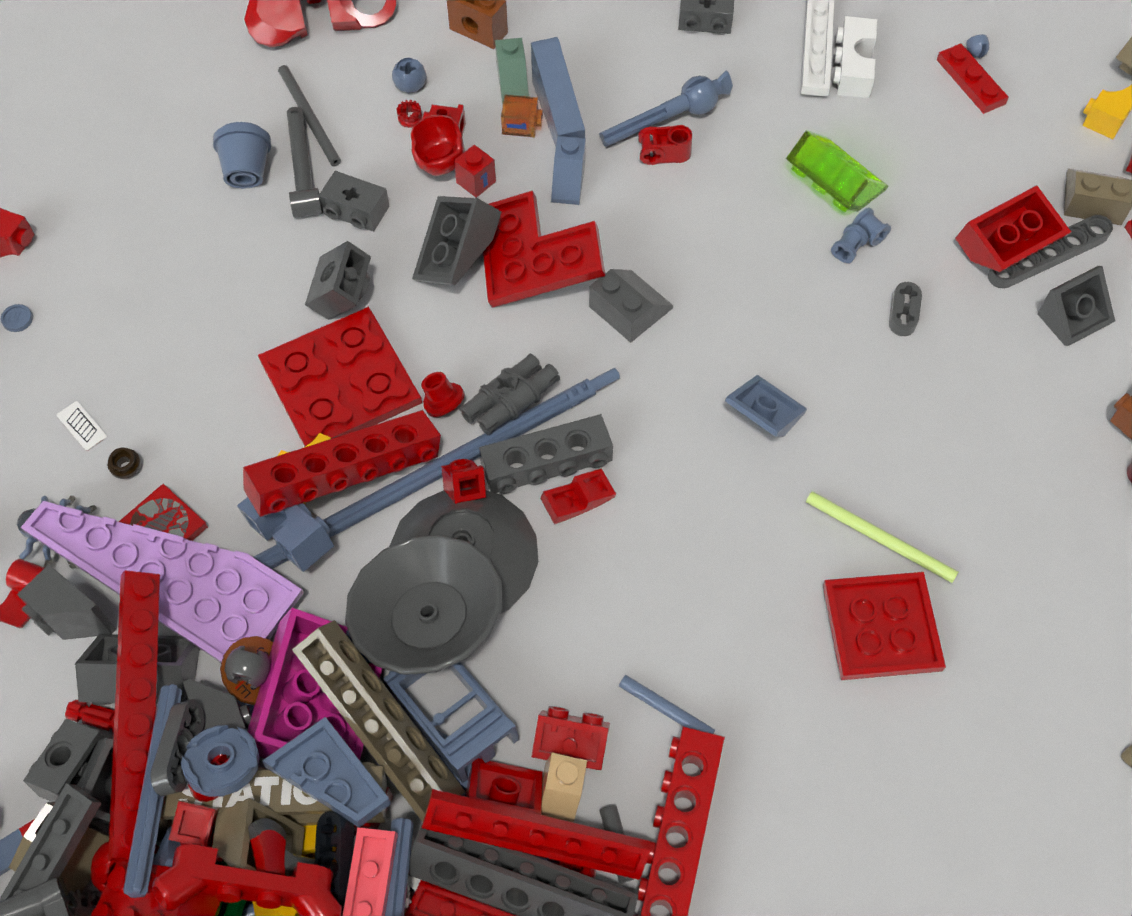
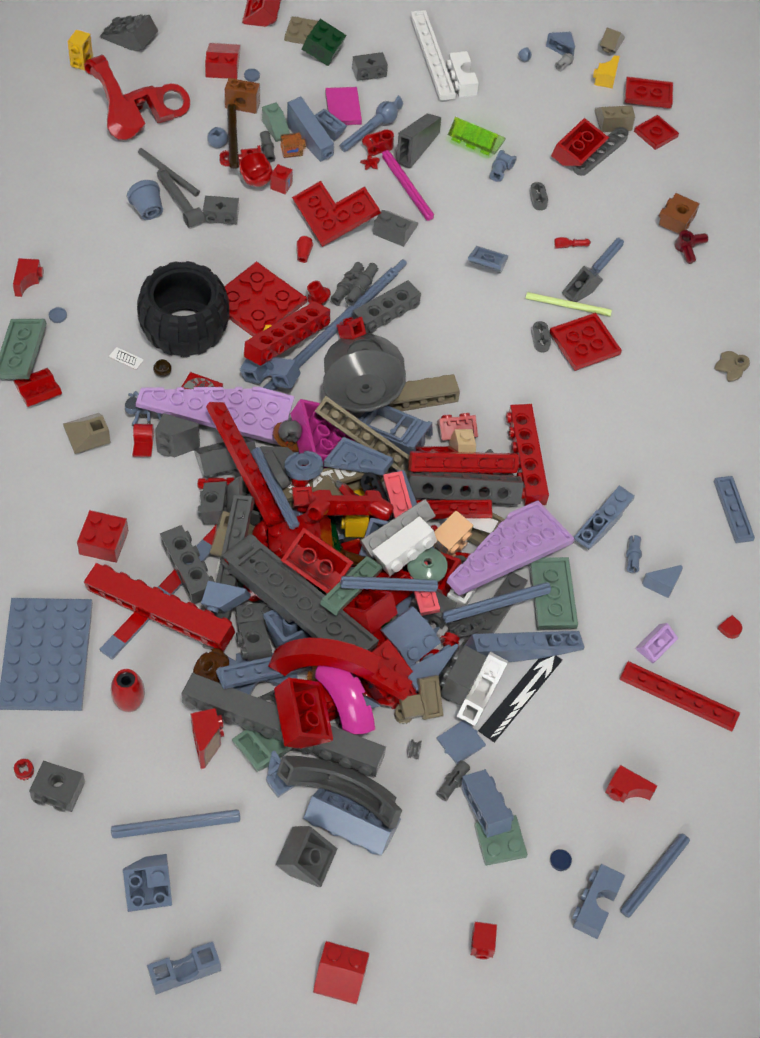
camera: 25 degrees left, 5 degrees down
(174, 330) = (181, 287): none -> black tyre
(339, 280) = (236, 250): dark grey brick -> none
(431, 79) = (232, 135): none -> dark brown axle
(455, 239) = (289, 214): dark grey slope -> none
(457, 304) = (304, 247): none -> red cone
(481, 109) = (267, 146): none -> dark grey pin
(542, 648) = (427, 393): none -> dark tan brick
(568, 170) = (332, 167): sand blue slope -> none
(578, 497) = (411, 324): red slope -> none
(597, 93) = (331, 124): none -> sand blue slope
(636, 68) = (344, 104): none -> dark pink tile
(639, 175) = (370, 162): none -> red plant
(663, 705) = (489, 402): sand blue bar -> none
(683, 233) = (408, 185): none -> dark pink axle
(729, 152) = (417, 138): none -> dark grey slope
(811, 591) = (537, 336): none -> dark grey beam
(920, 506) = (582, 284): none -> dark grey slope
(921, 411) = (563, 242): none -> red piece
(972, 78) = (528, 72): red plate -> none
(990, 457) = (607, 255): none -> sand blue axle
(1047, 71) = (567, 59): none -> light grey pin
(1049, 40) = (561, 42): none -> sand blue slope
(1078, 307) = (624, 174): dark grey slope -> none

